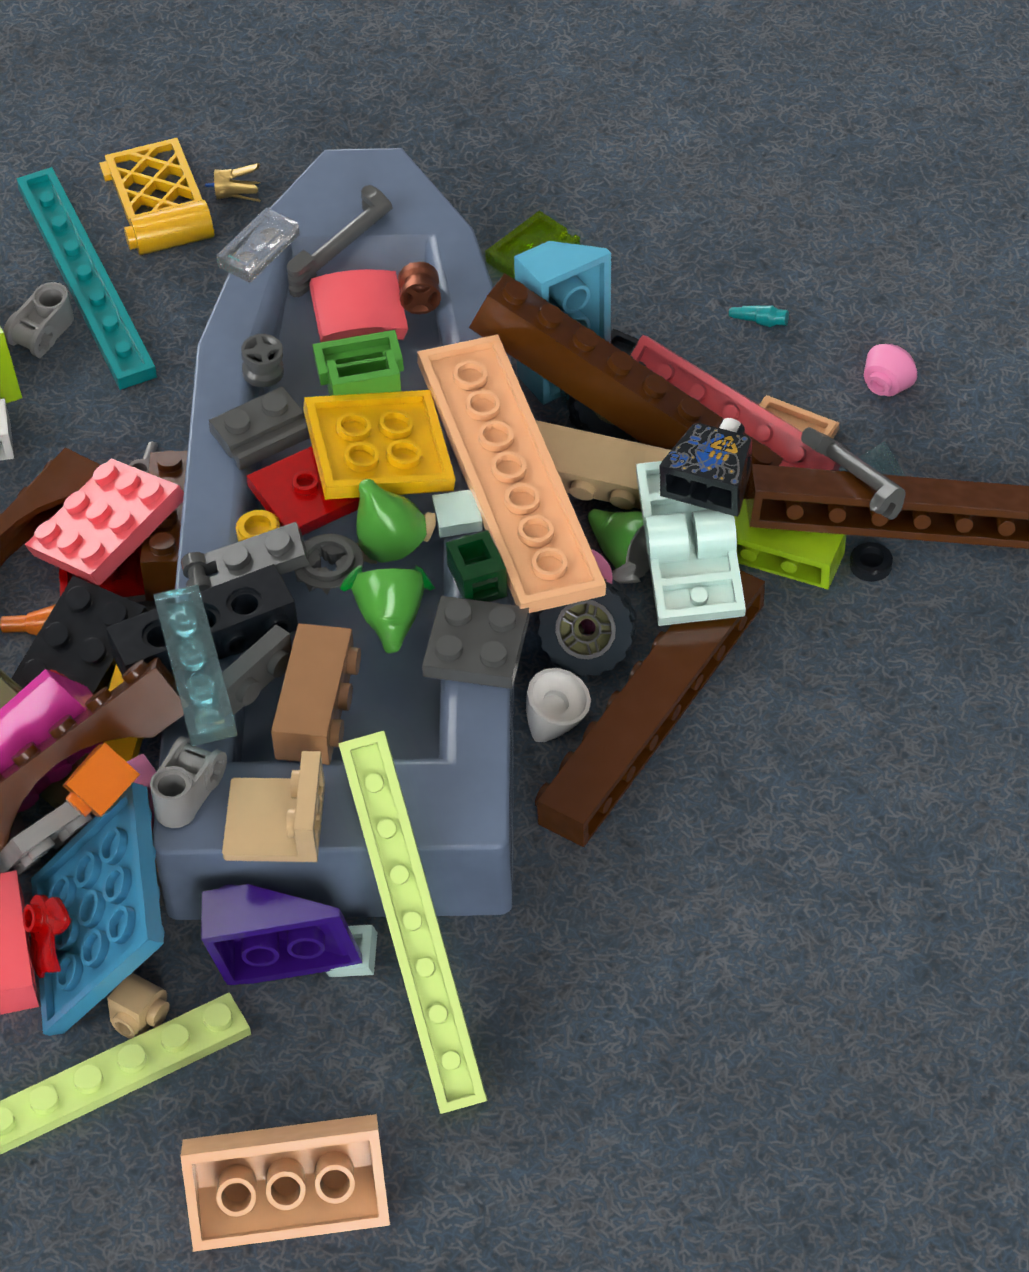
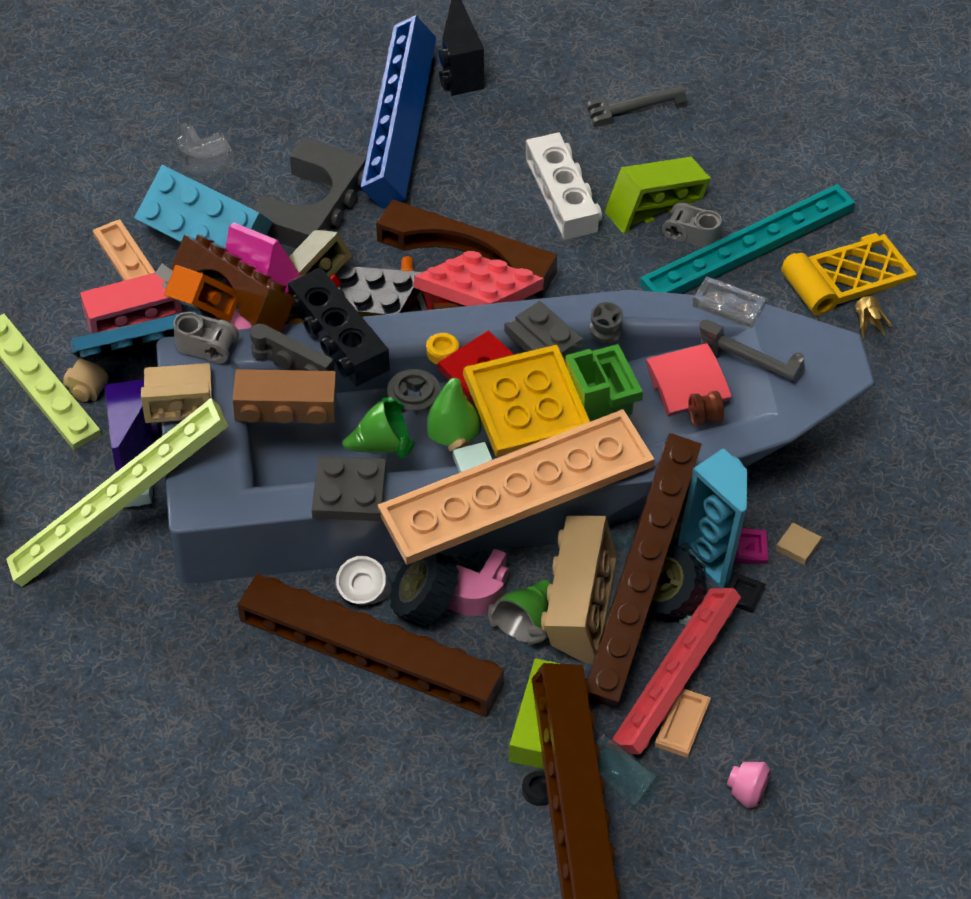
camera: 80 degrees right, 0 degrees up
(45, 920) = (131, 314): red plate -> none
(195, 665) = (280, 313): clear light blue plate -> none
(279, 547) = (403, 341): plate -> none
(477, 567) = (410, 471): dark green brick -> none
(529, 234) = (843, 518): clear neon green plate -> none
(689, 556) = (499, 631): light aqua plate -> none
(709, 467) = (543, 618): black torso -> none
(761, 314) = (807, 689): teal piece -> none
(889, 495) = (619, 728): dark grey hinge -> none

